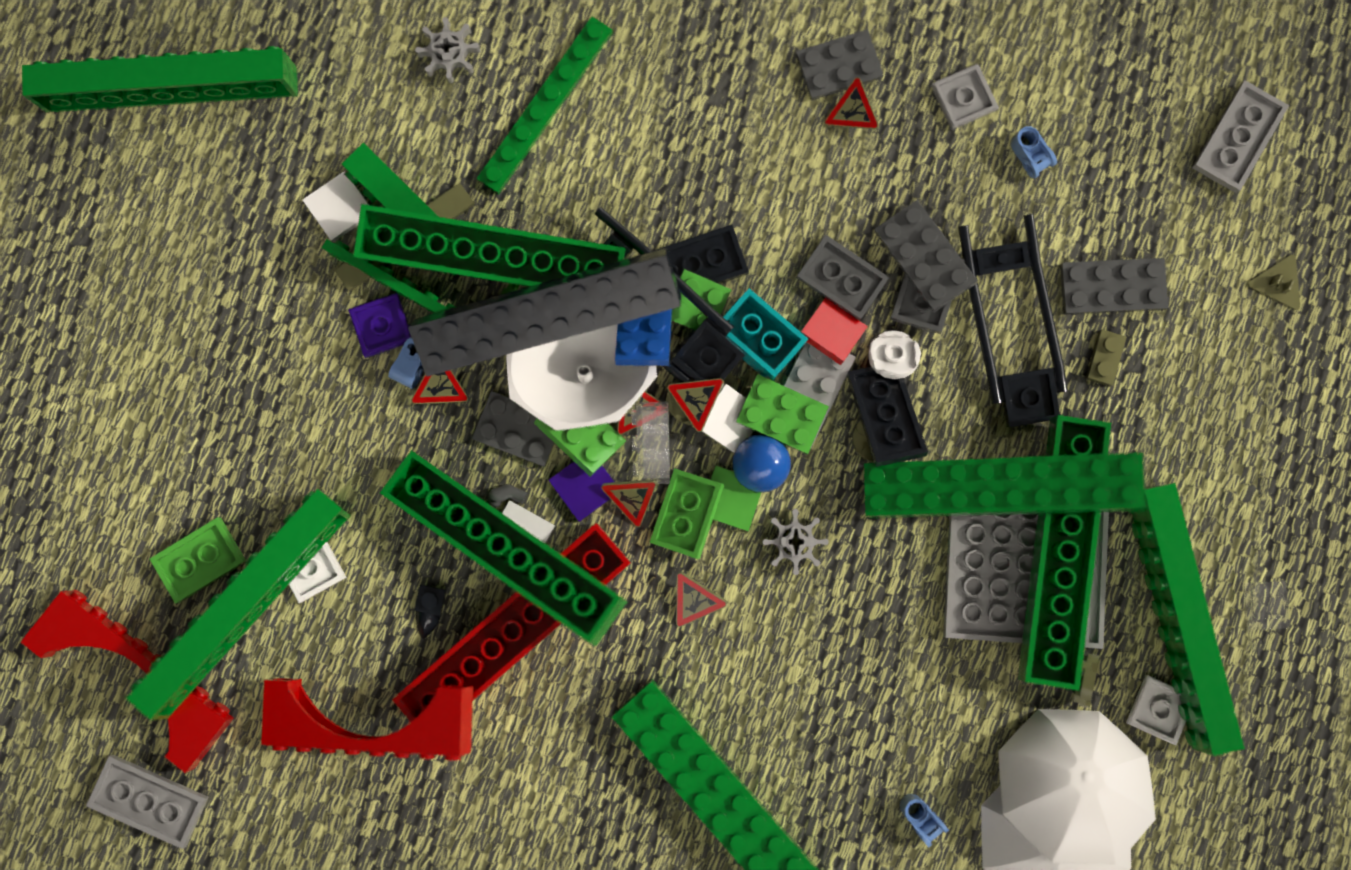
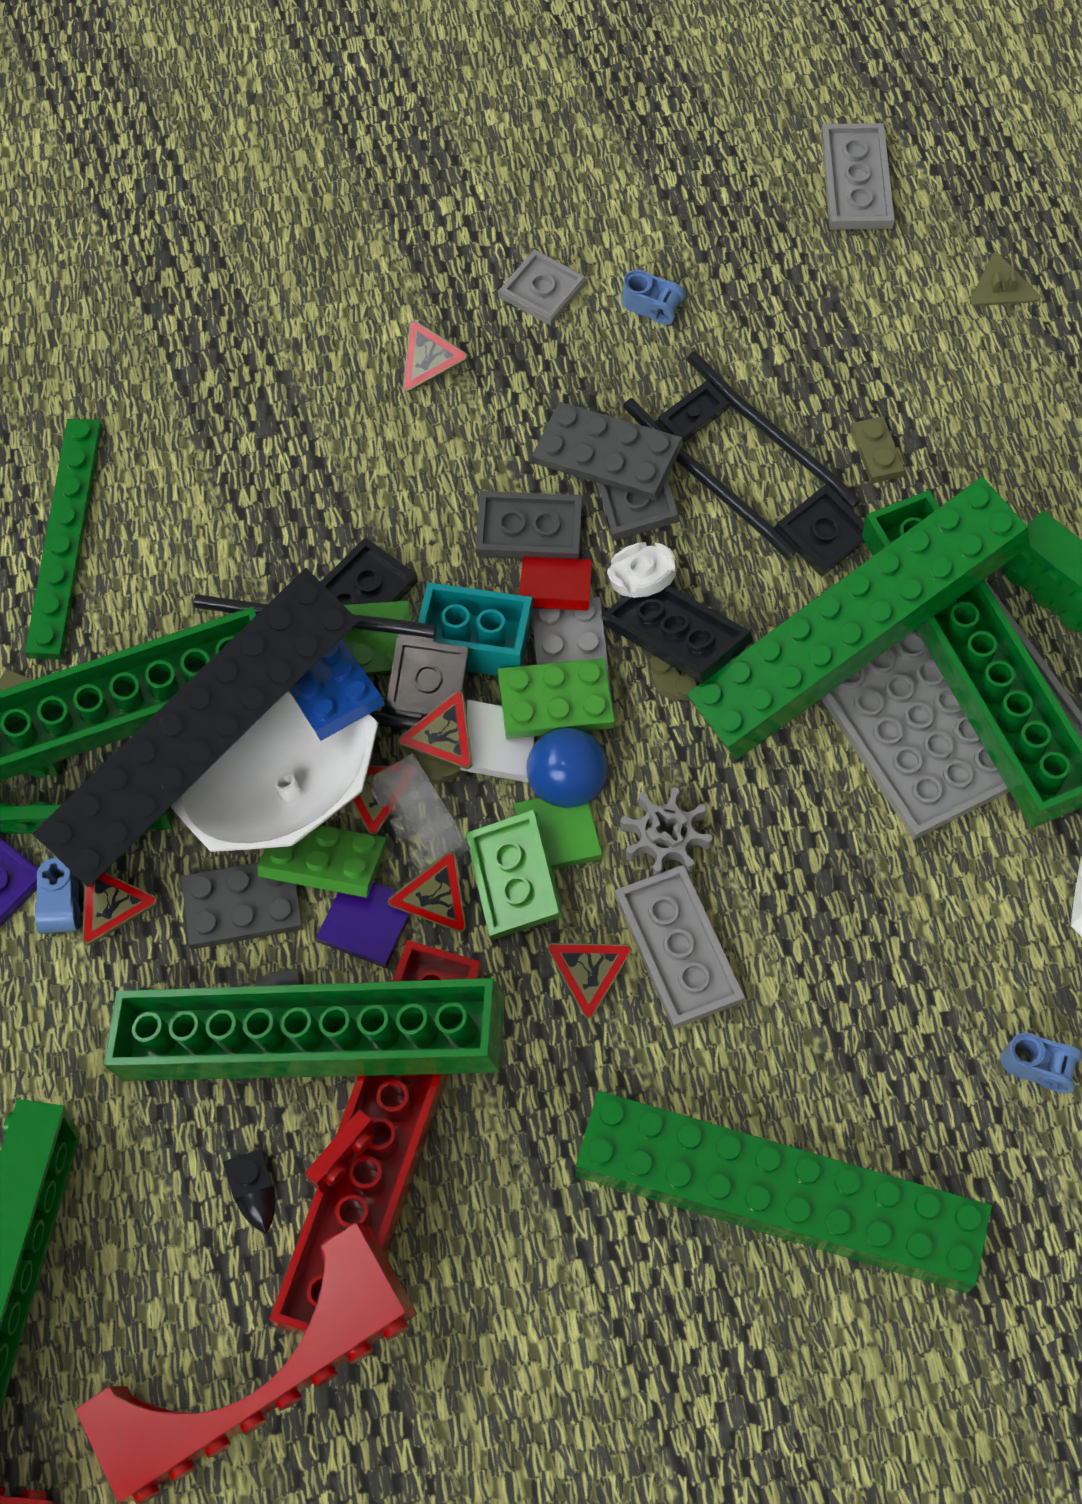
camera: 30 degrees left, 20 degrees down
(317, 575) = (75, 1236): white tile -> none
(471, 638) = (352, 1139): none -> red plate
(757, 617) = (679, 947): none -> light grey plate
(836, 63) = (380, 326): dark grey plate -> none
(1114, 286) = (832, 378): dark grey plate -> none

